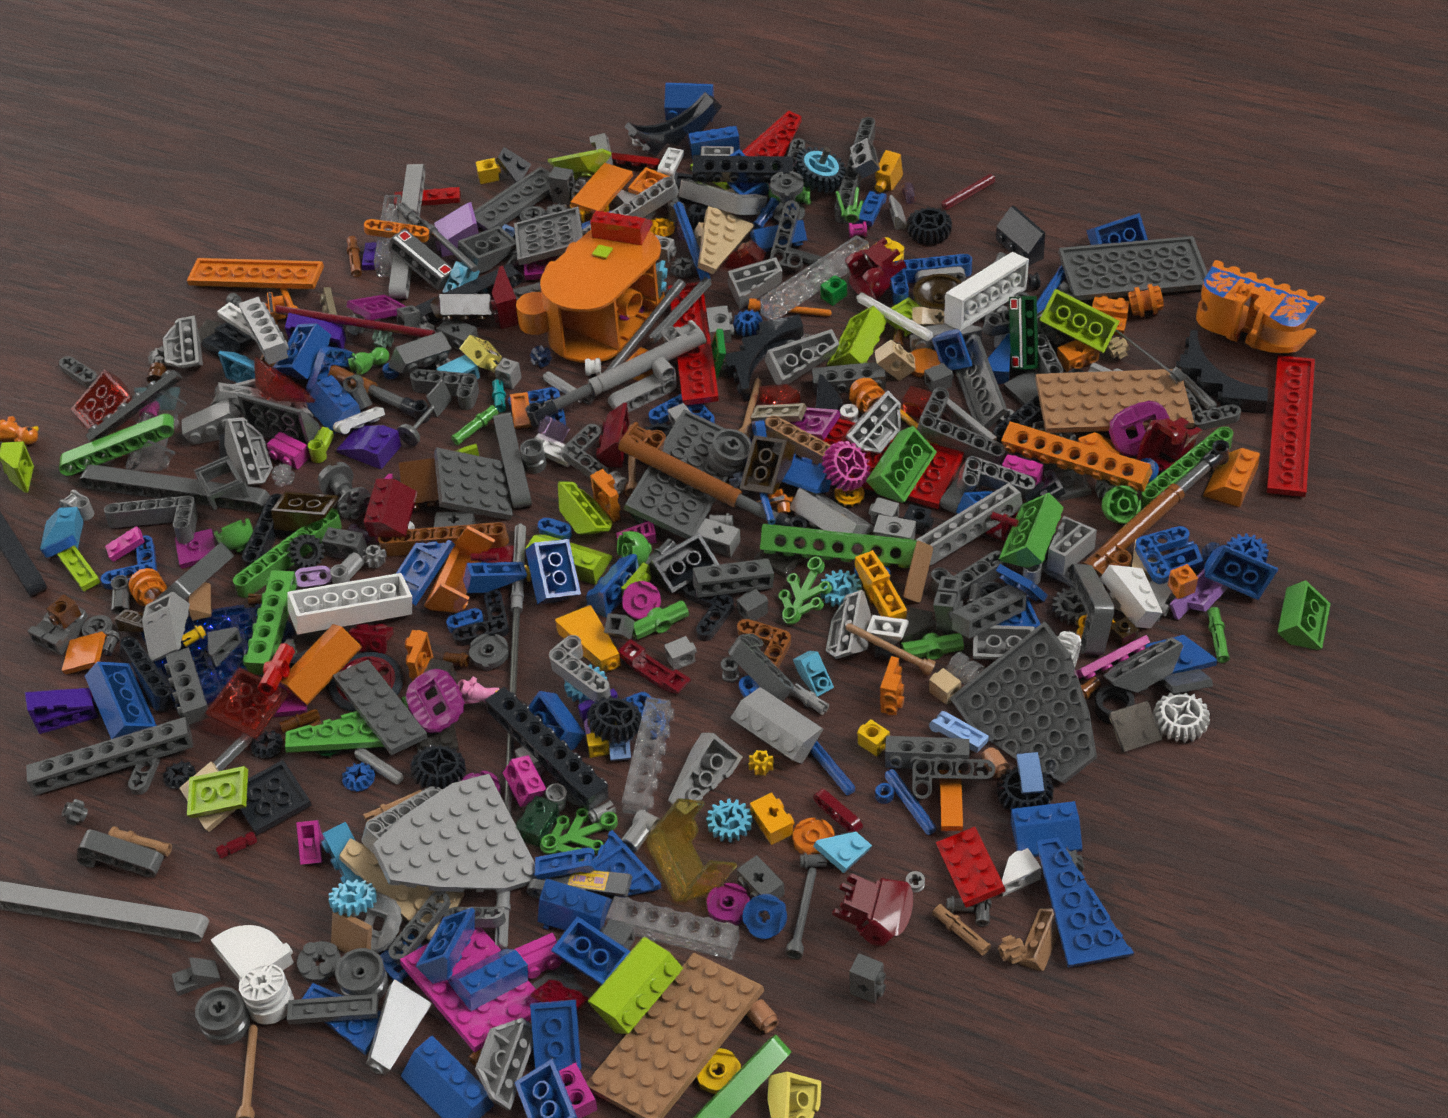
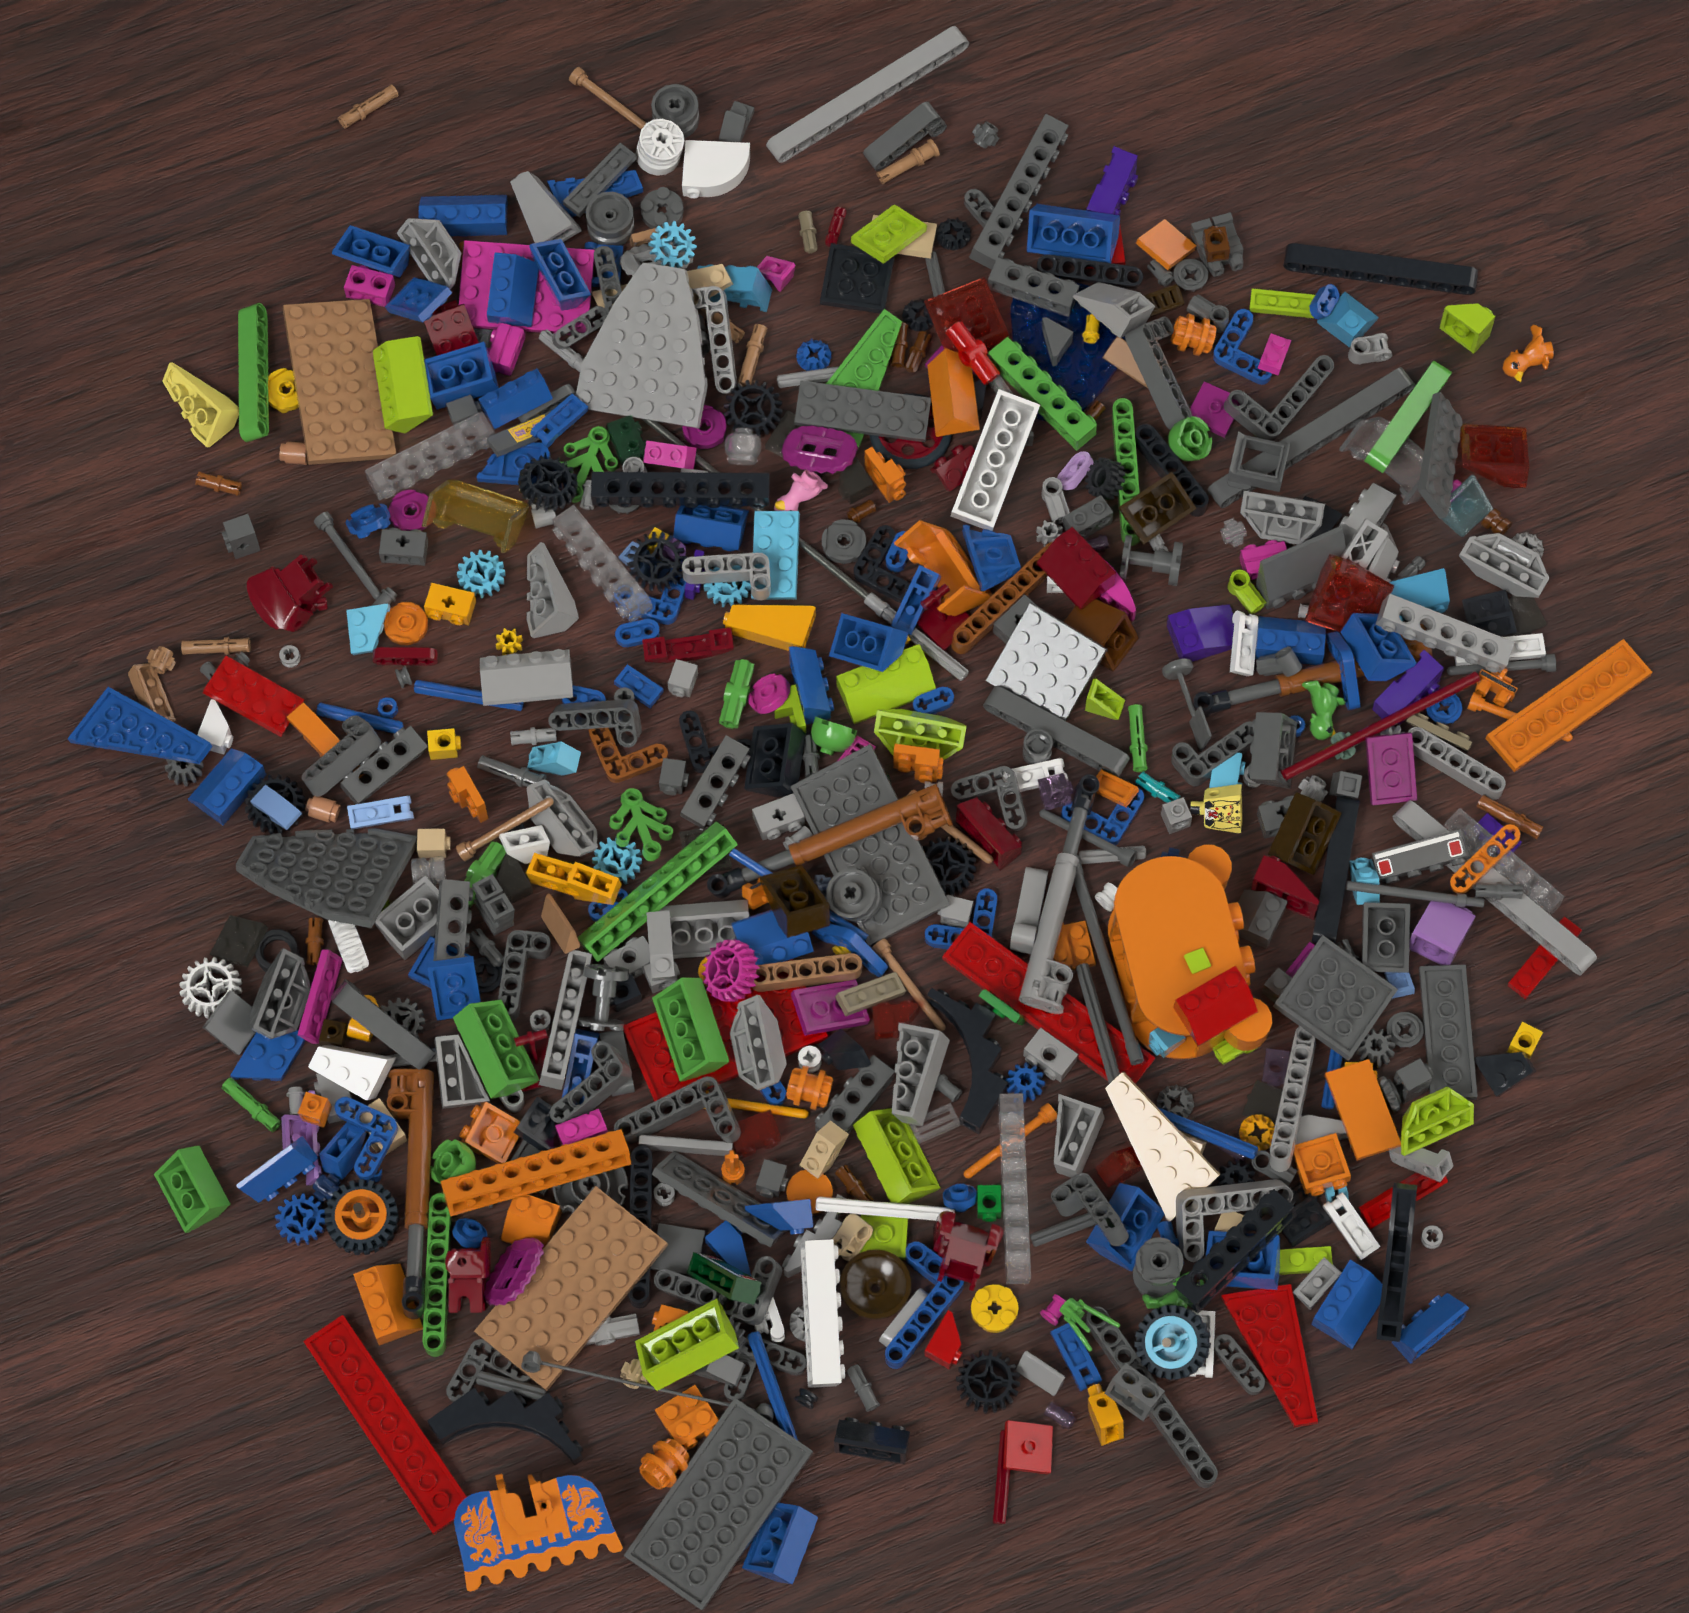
camera: 130 degrees right, 20 degrees up
(65, 363) = (1559, 462): dark grey beam -> none
(255, 856) = (808, 231): none -> dark tan axle
(343, 288) = (1459, 773): none -> light grey beam
(476, 748) = (742, 447): none -> clear piece
(530, 675) = (778, 538): none -> medium azure plate
(560, 372) = (1126, 856): none -> dark grey piece
(619, 626) = (748, 641): dark grey brick -> none
(626, 829) = (549, 476): none -> black gear
(668, 248) = (1226, 1095): light grey brick -> none
(678, 702) = (637, 632): none -> blue plate
(711, 672) = (643, 688): none -> blue plate
(840, 1044) = (218, 483): none -> dark orange pin
(844, 680) = (521, 776): none -> dark grey pin
(846, 300) = (960, 1197): none -> blue plate
(853, 800) = (403, 677): none -> dark grey bush
(873, 504) = (660, 945): none -> light grey slope
(924, 512) = (604, 988): none -> dark grey piece
(932, 248) = (945, 1343): none -> red slope
(942, 190) = (1027, 1447): none -> plate
(956, 393) = (733, 1169): none -> orange piece
(983, 551) = (540, 1014): none -> light grey bush
(1082, 508) = (490, 1132): none -> orange plate
(1183, 619) = (295, 1099): none -> light grey pin
(1207, 521) = (361, 1217): none -> wheel

